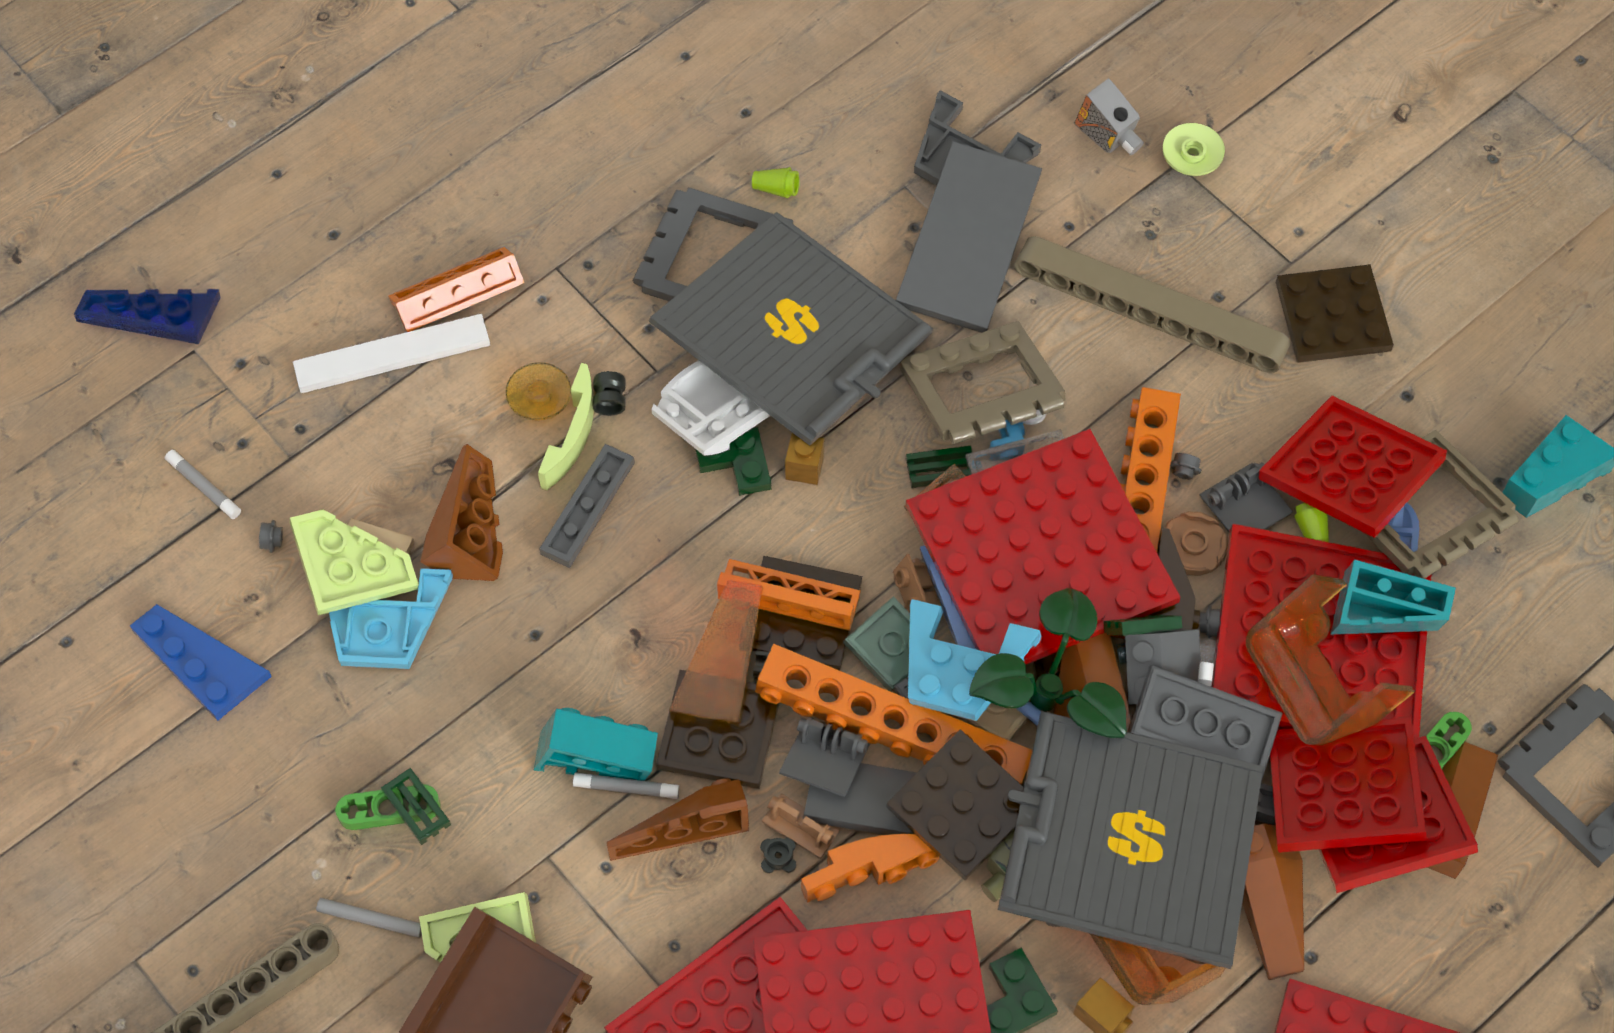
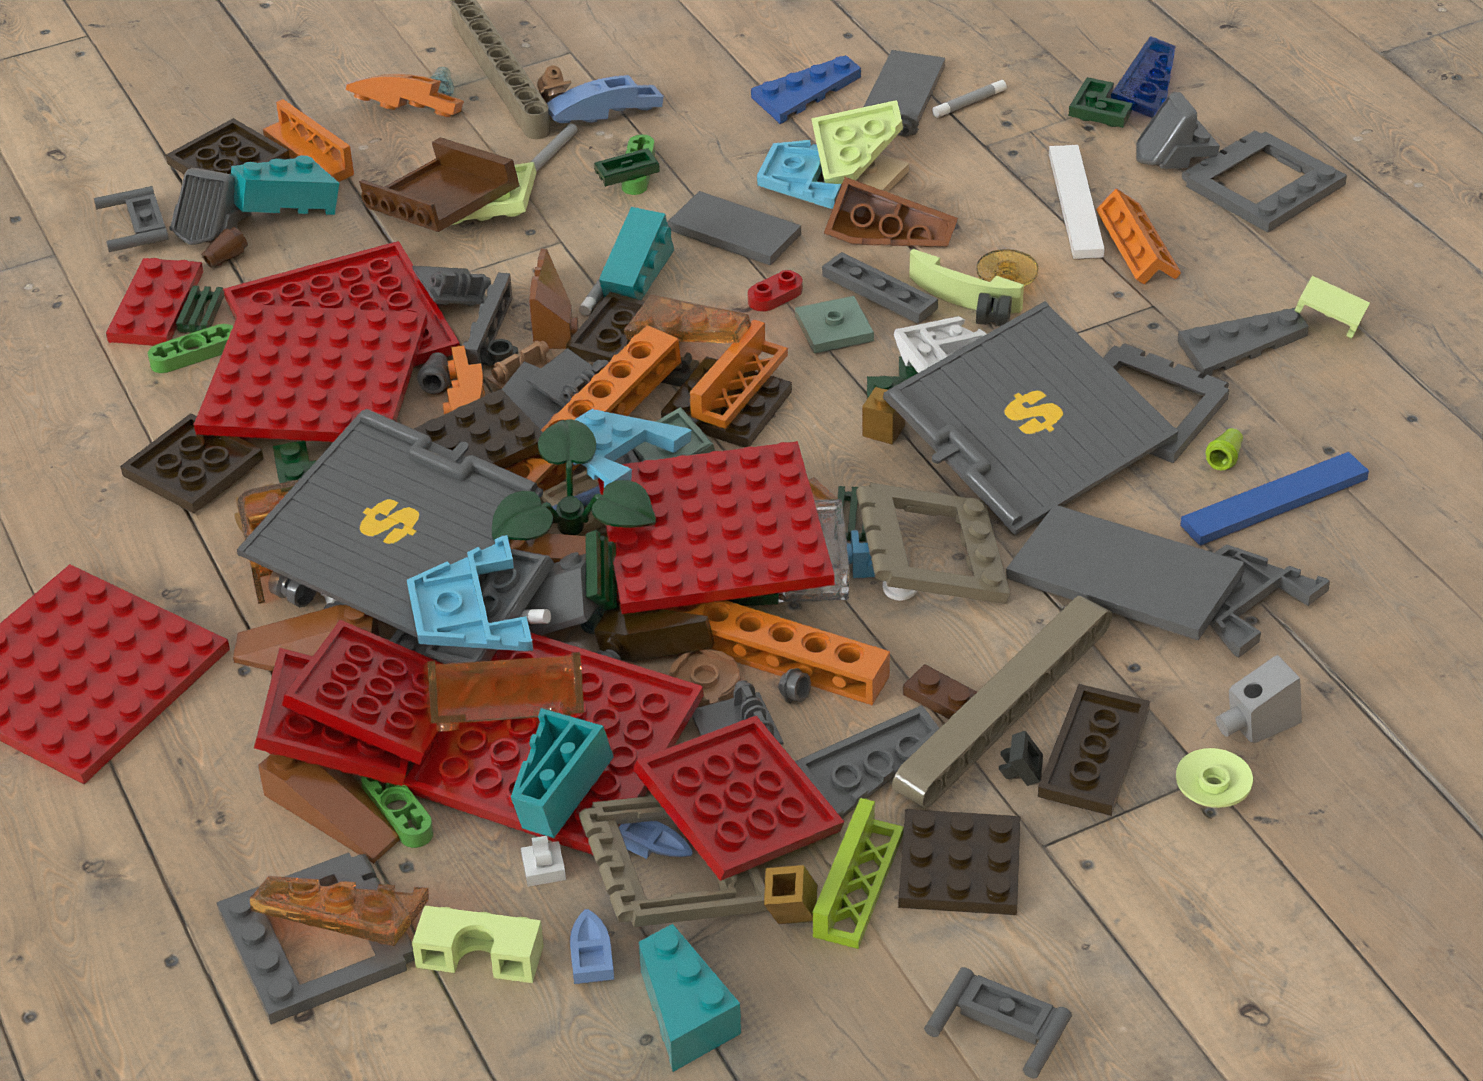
camera: 105 degrees right, 20 degrees down
(187, 554) = (908, 79): none -> dark grey tile
(208, 359) = (1095, 104): none -> dark green plate
(261, 937) = (552, 83): none -> medium nougat hinge
(273, 871) = (595, 98): none -> medium blue slope
(281, 270) = (1174, 136): none -> dark grey piece
(305, 231) = (1280, 206): none -> dark grey hinge
(496, 674) = (734, 227): none -> dark grey tile
(556, 112) = (1333, 303): none -> yellowish green hinge
(604, 606) = (775, 291): none -> red plate
(606, 193) = (1232, 340): none -> dark grey wing
(652, 539) = (834, 324): none -> sand green plate
(675, 938) = (453, 285): none -> dark grey hinge
(744, 878) = (490, 319): none -> dark grey plate
(830, 143) = (1274, 498): none -> blue tile
(830, 911) = (434, 374): none -> dark grey cone
(1153, 355) = (937, 691): none -> reddish brown plate
(1185, 235) = (1094, 749): none -> dark brown plate
(1215, 280) = (1022, 759): none -> pearl dark grey tile
(1230, 743) = (451, 606): none -> medium azure wing
(1267, 404) = (867, 759): none -> dark grey wing
(1380, 380) = (845, 868): none -> lime fence
(1434, 410) = (790, 894): none -> pearl gold brick
(1460, 618) = (543, 862): none -> white tile
(1475, 254) = (1003, 1010): none -> dark grey plate
(1534, 549) = (590, 949): none -> medium blue plate
(1562, 660) = (450, 933): none -> yellowish green arch
(1577, 741) = (341, 908): none -> clear orange wing

